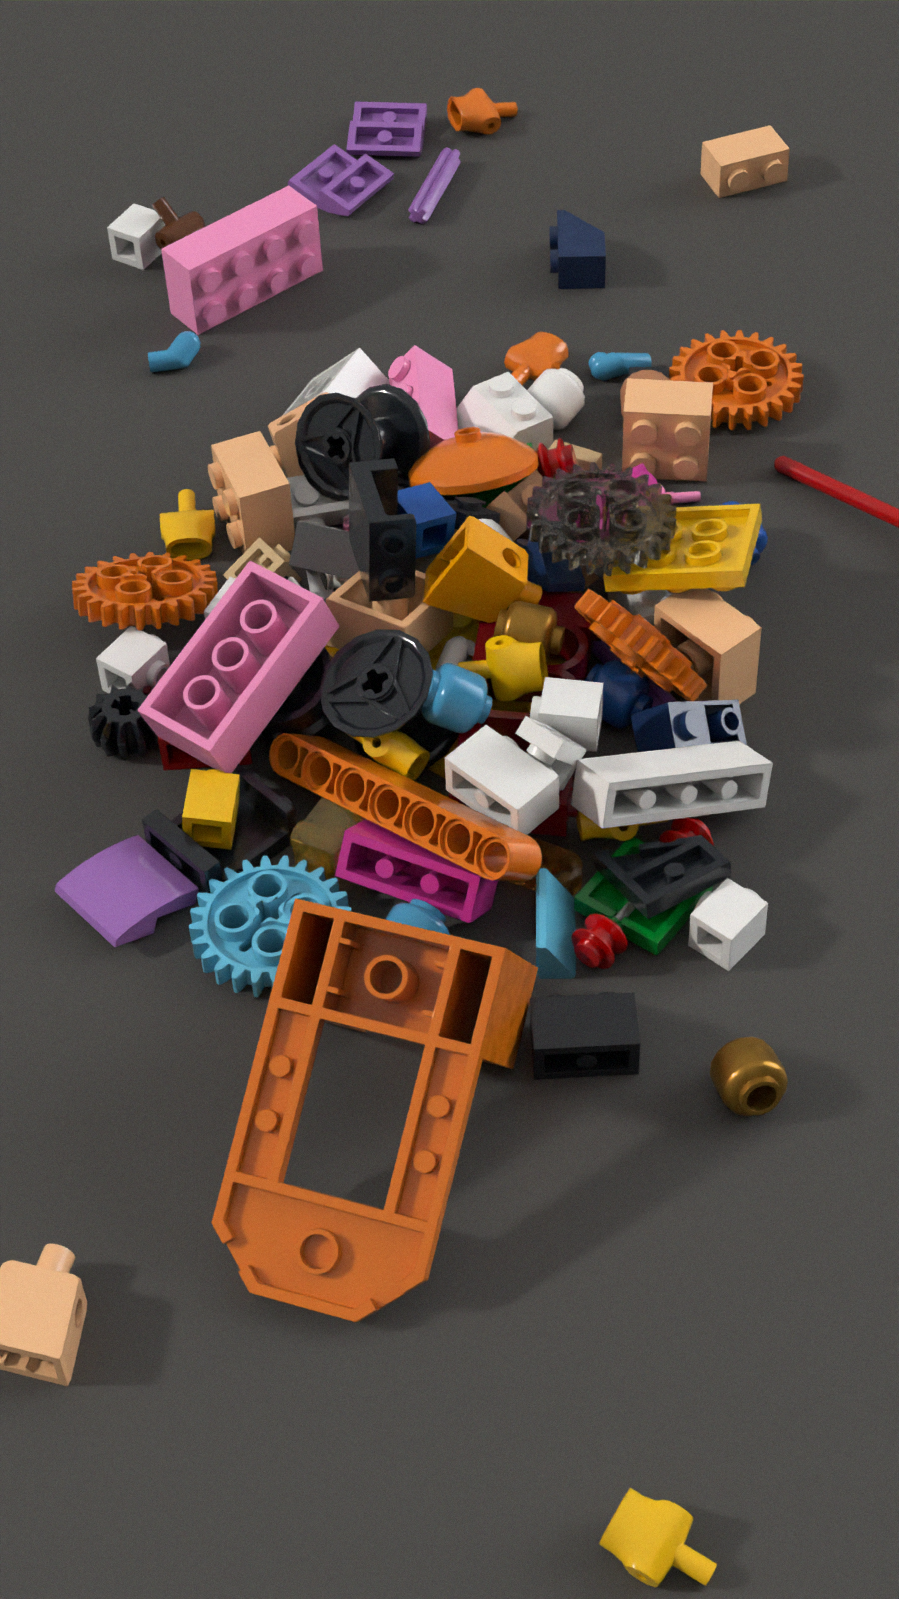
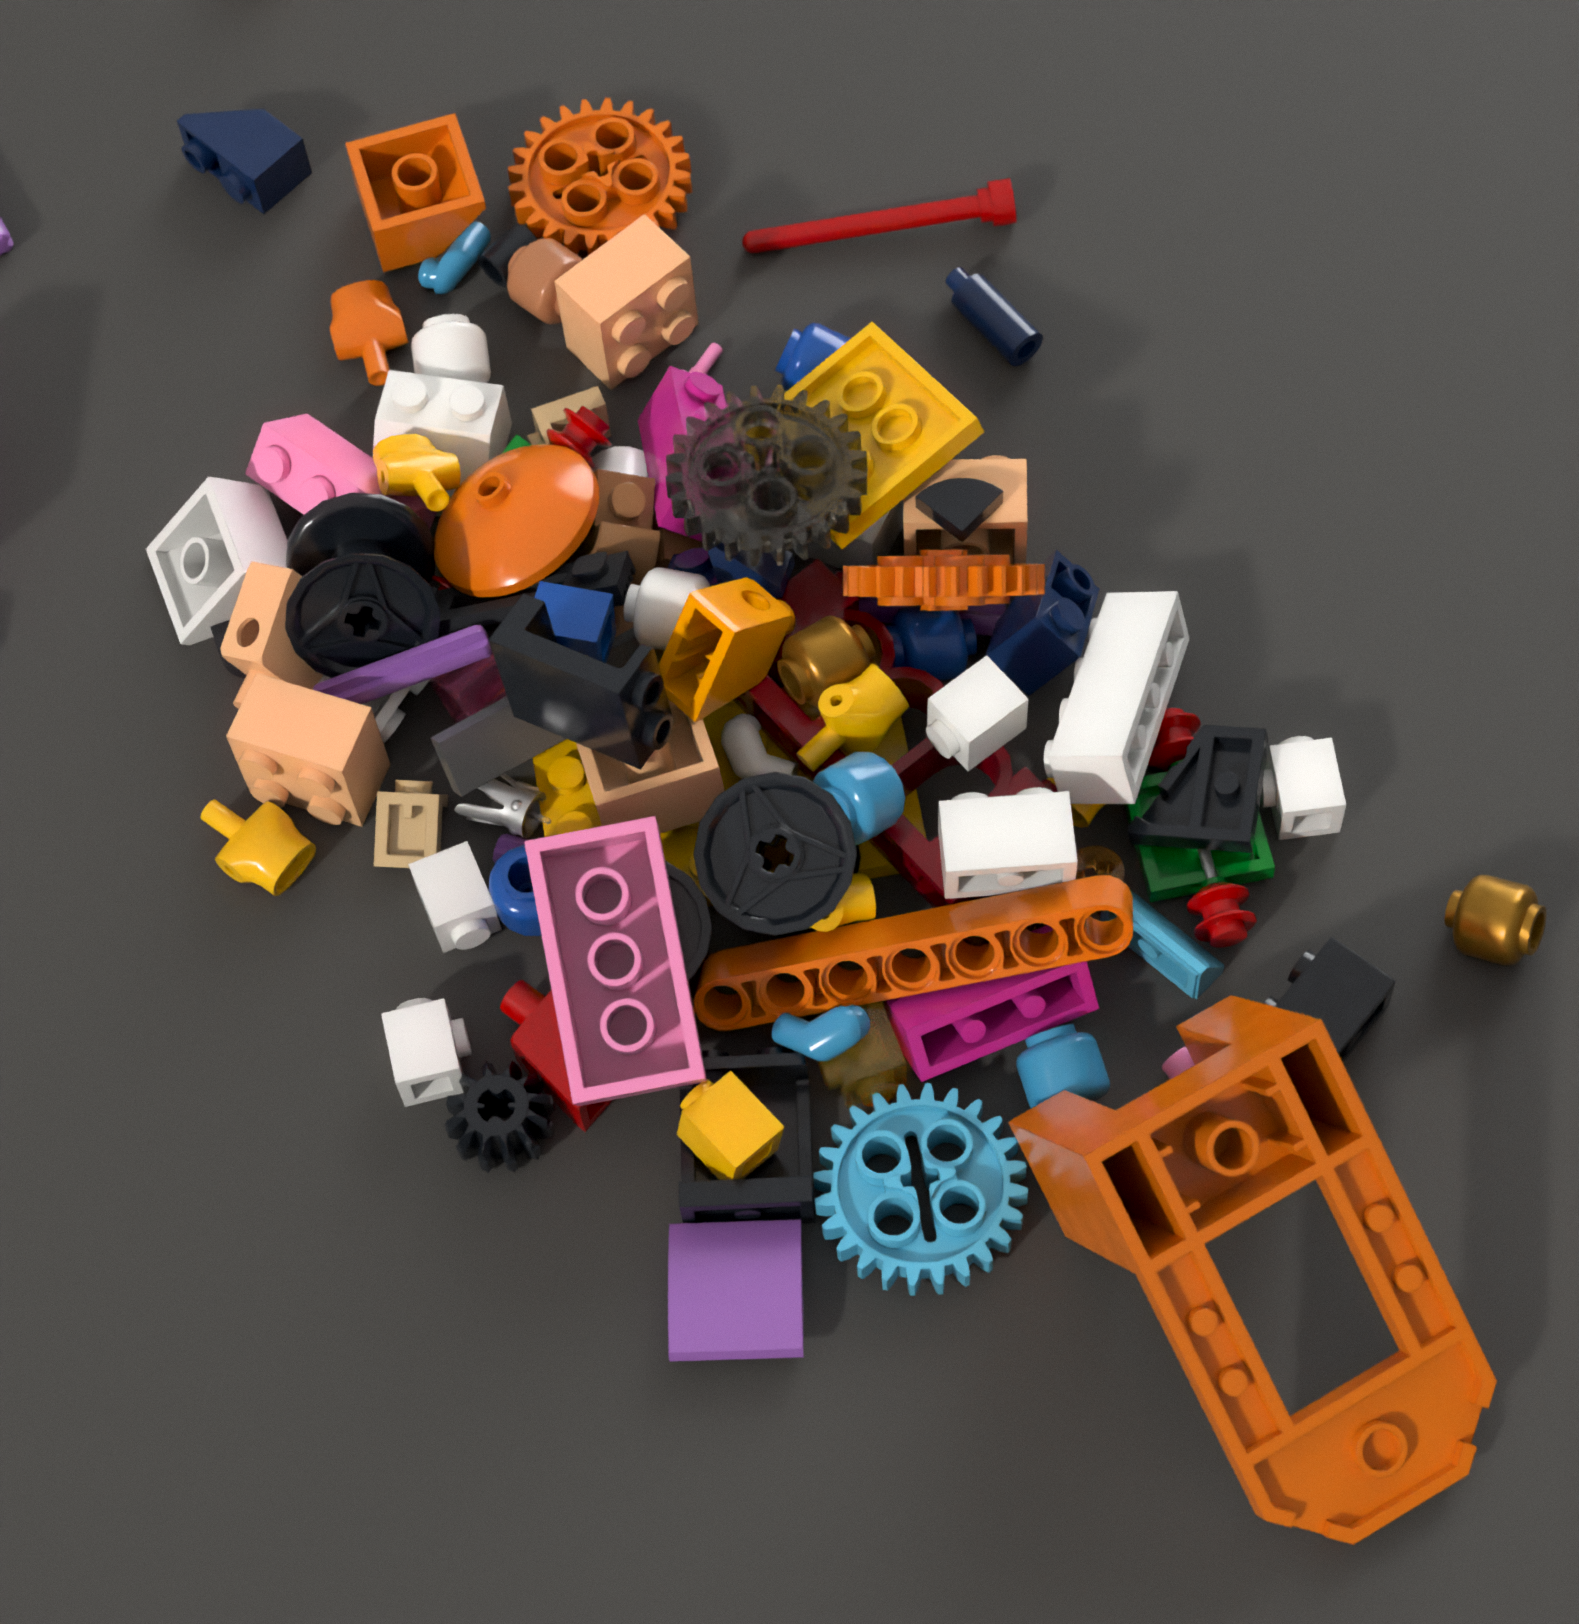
camera: 45 degrees left, 15 degrees up
(144, 590) = (330, 960): orange gear -> none
(309, 803) = (824, 1036): none -> dark azure arm
(318, 486) = (410, 666): none -> medium lavender axle
(456, 412) = (415, 467): none -> yellow piece
(551, 748) = (1017, 767): white bracket -> none
(626, 311) = (416, 189): none -> orange slope
(692, 615) = (959, 504): none -> black tile
(864, 586) = (994, 316): none -> dark blue cylinder

